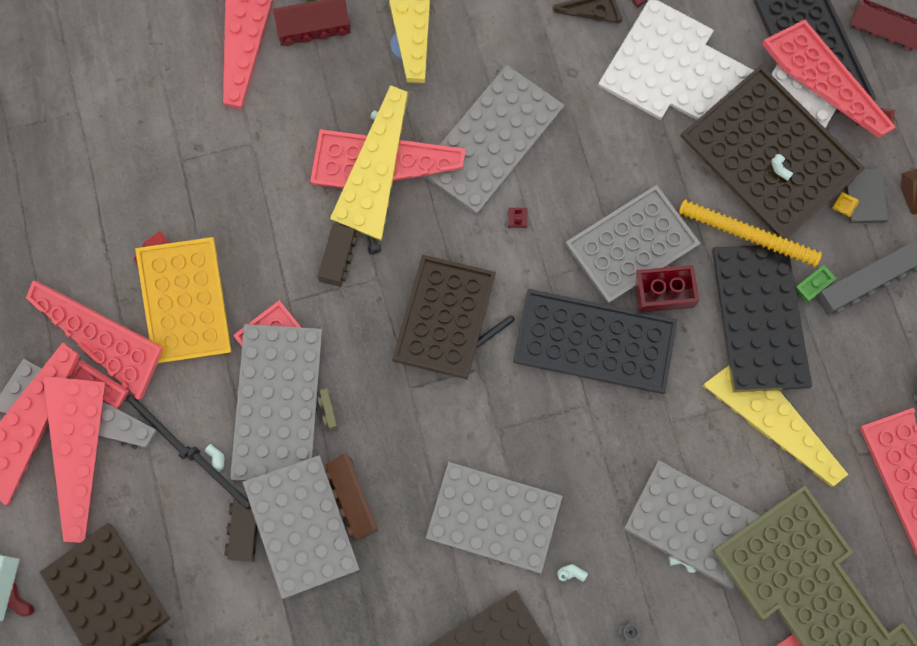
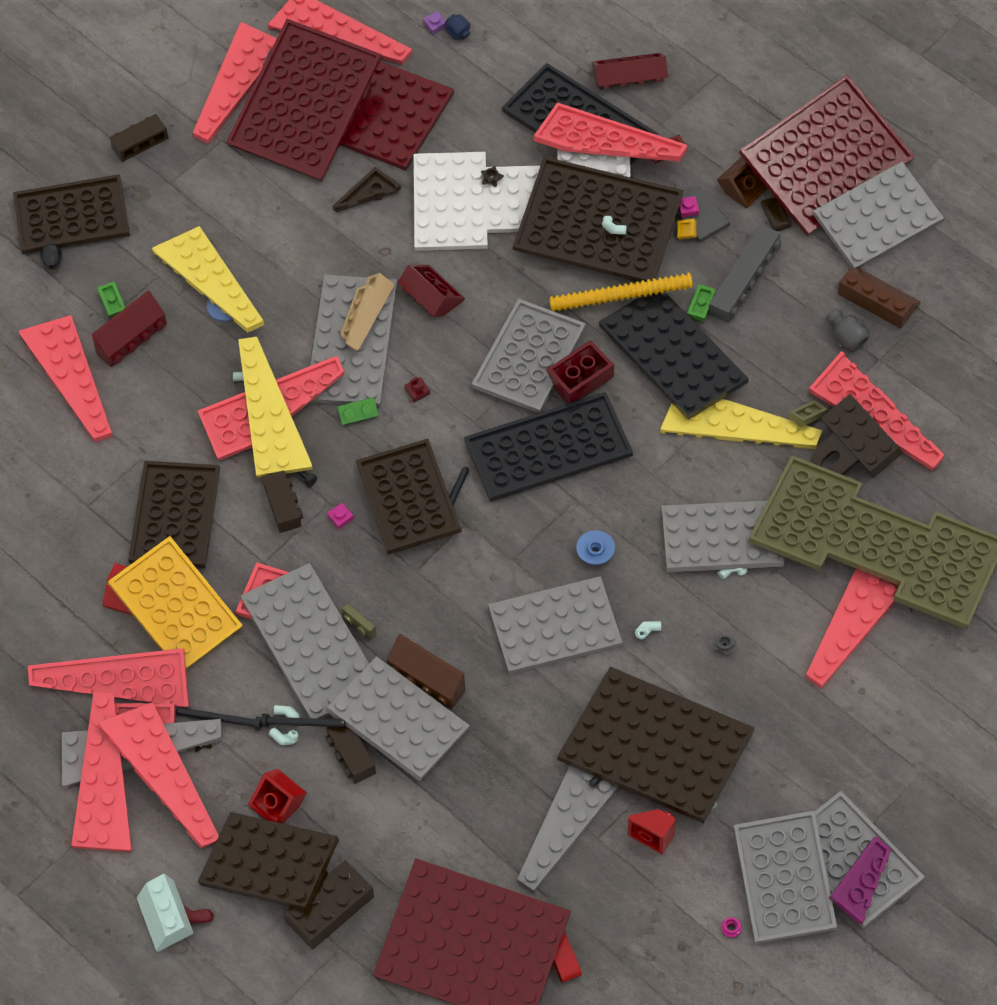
camera: 25 degrees left, 15 degrees down
(154, 534) = (276, 797): none -> red slope
(198, 481) = (284, 739): none -> light aqua arm
(244, 211) = (175, 503): none -> dark brown plate
(378, 297) = (340, 516): none -> dark pink plate
(454, 208) = (357, 410): none -> bright green plate
(517, 119) = (365, 309): none -> tan wedge
(582, 459) = (595, 540): none -> medium blue dish
(586, 131) = (430, 289): none -> dark red slope
(704, 52) = (491, 172): none -> dark brown plate
(845, 451) = (807, 413): none -> olive plate
(860, 185) = (688, 207): none -> dark pink plate
(873, 506) = (856, 439): none -> dark brown brick

